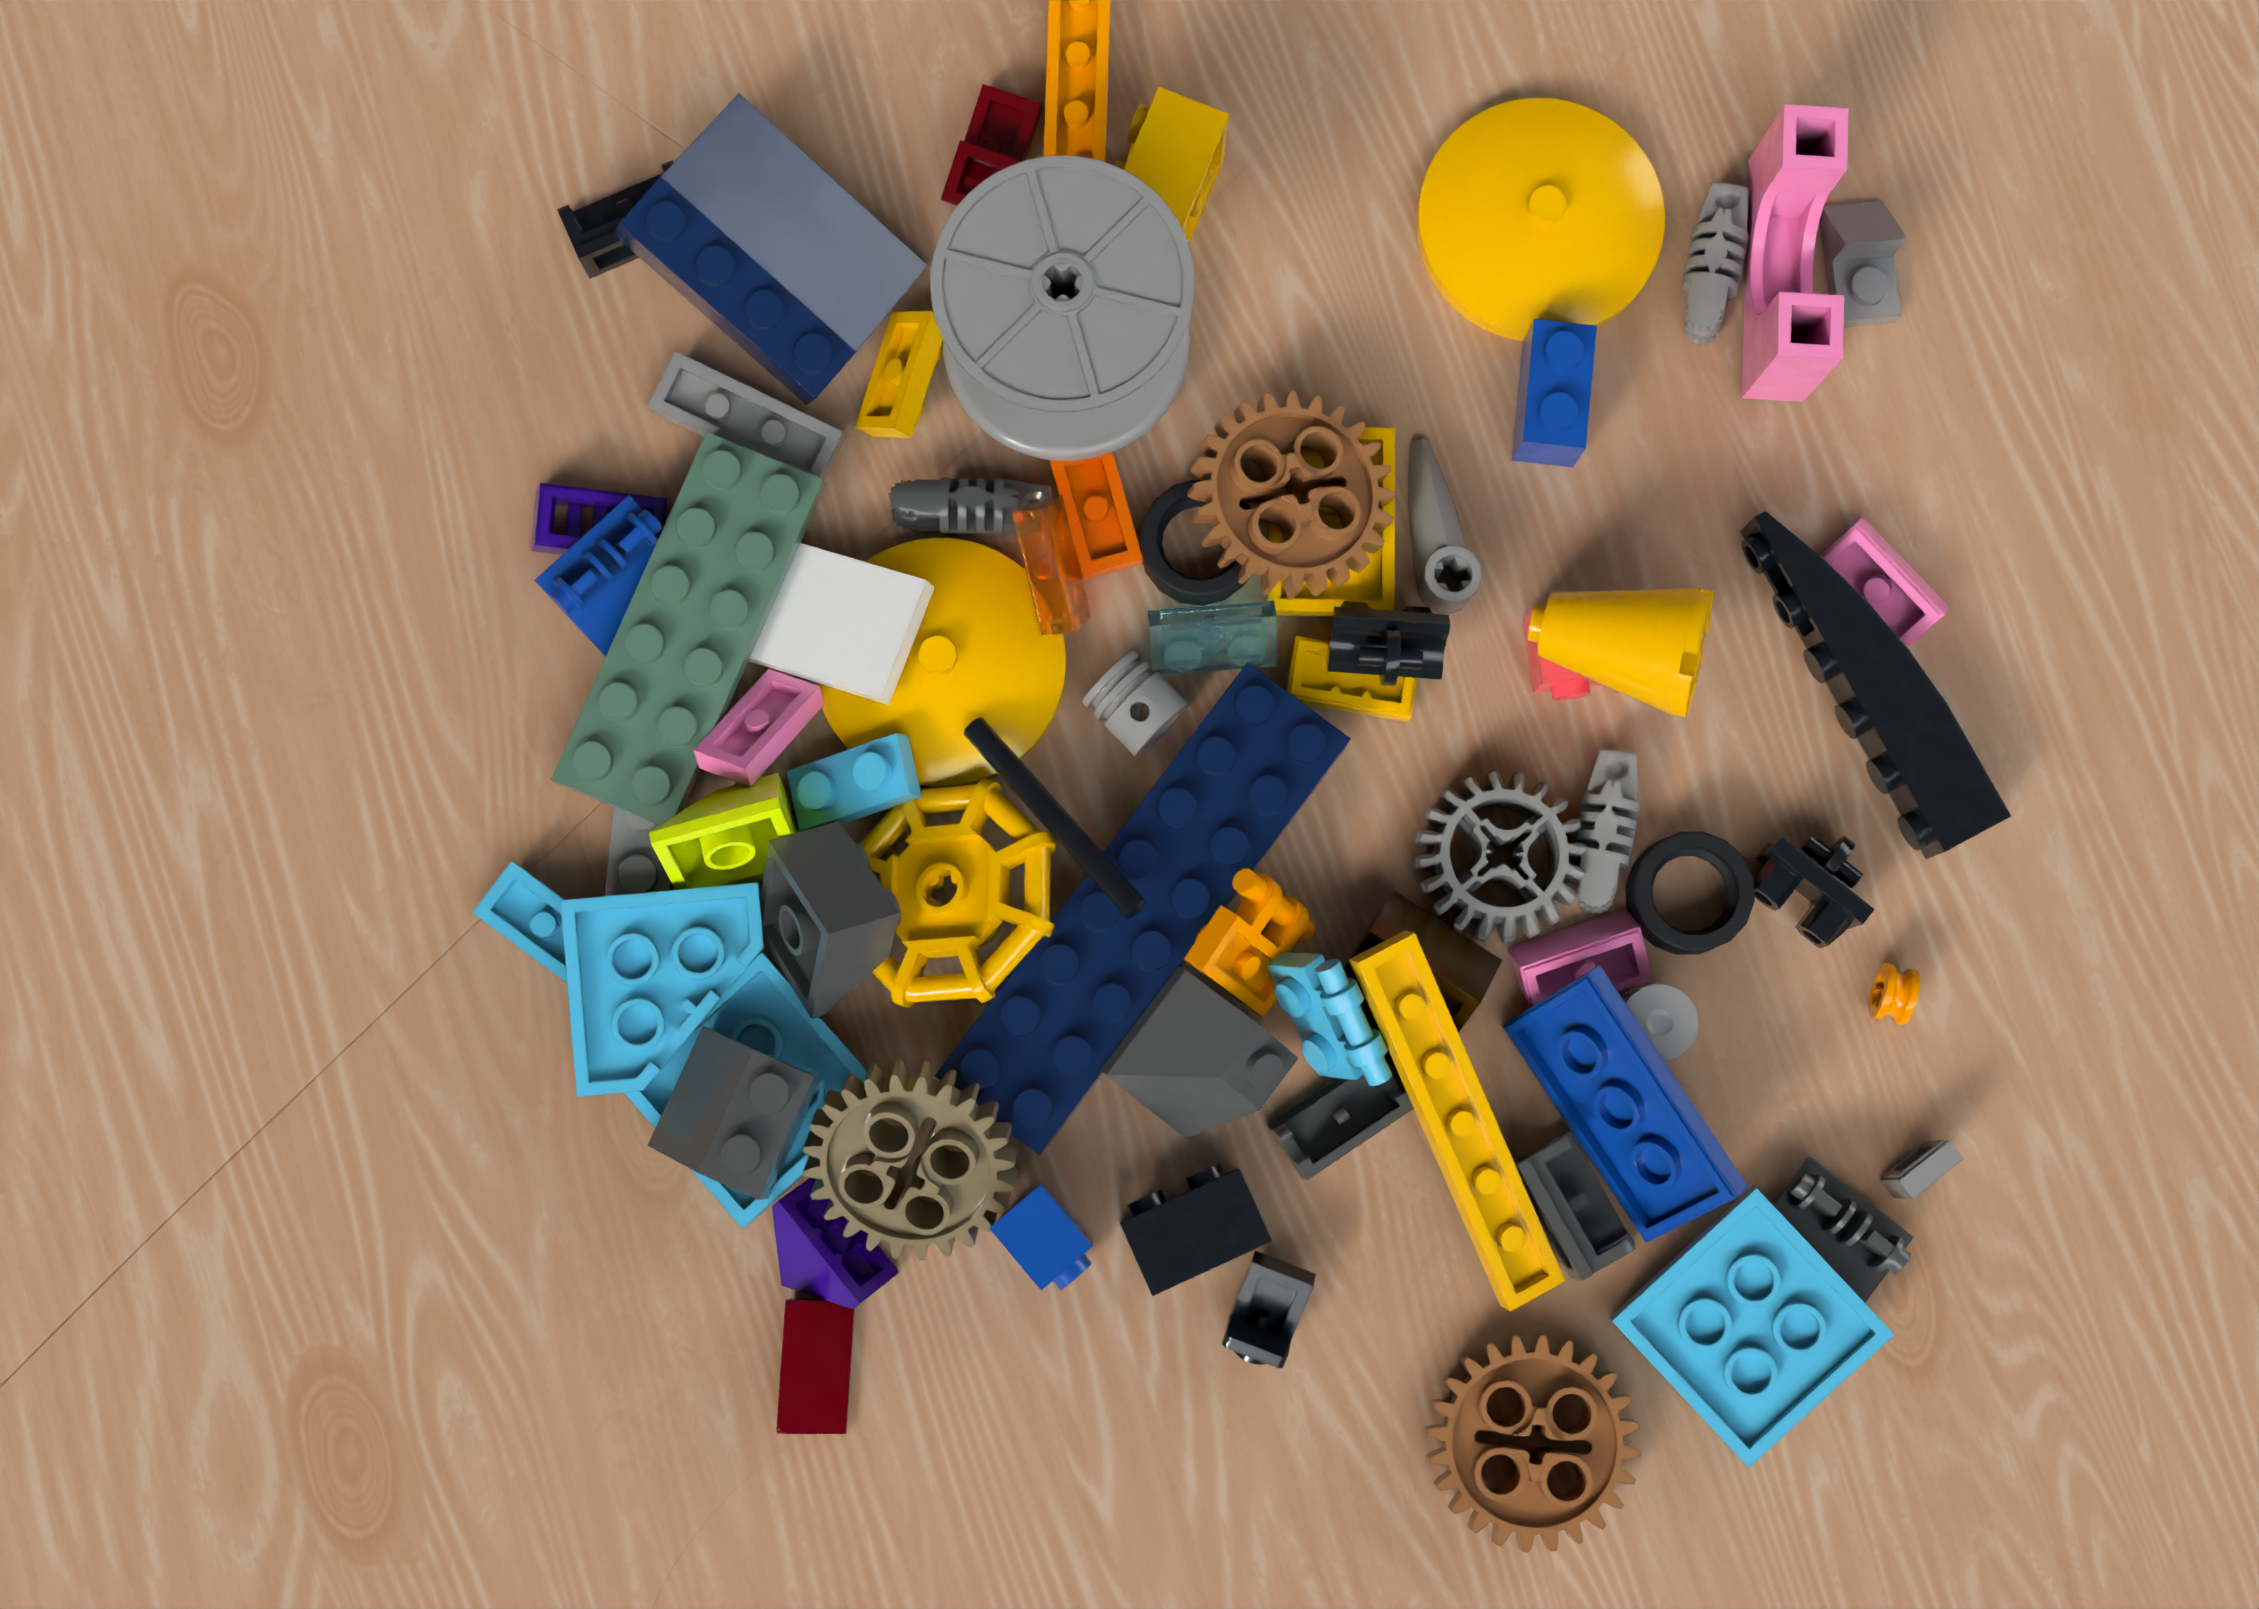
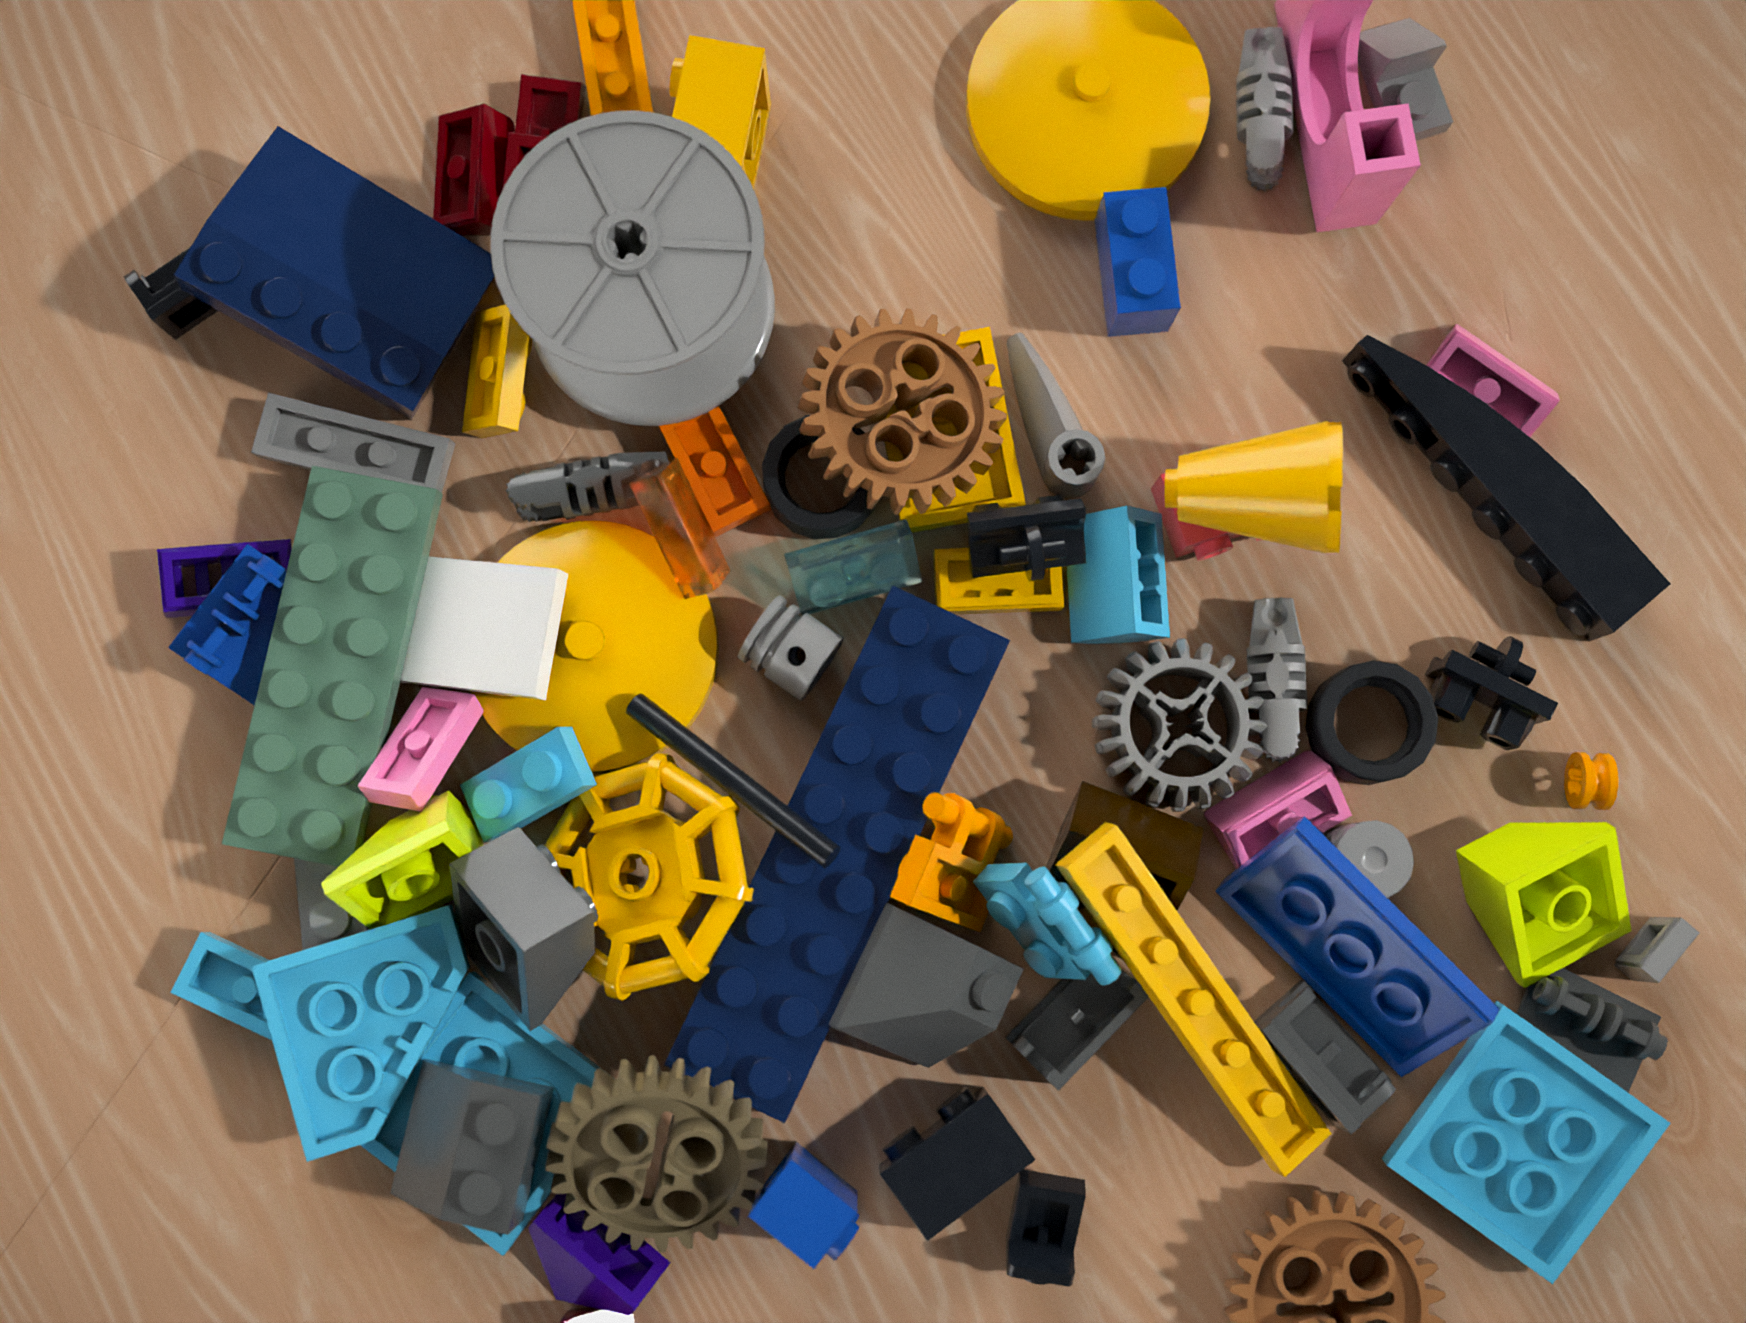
camera: 10 degrees left, 0 degrees up
(914, 170) = (470, 168): none -> dark red slope
(1475, 705) = (1123, 582): none -> medium azure brick
(1825, 1092) = (1546, 893): none -> neon yellow slope

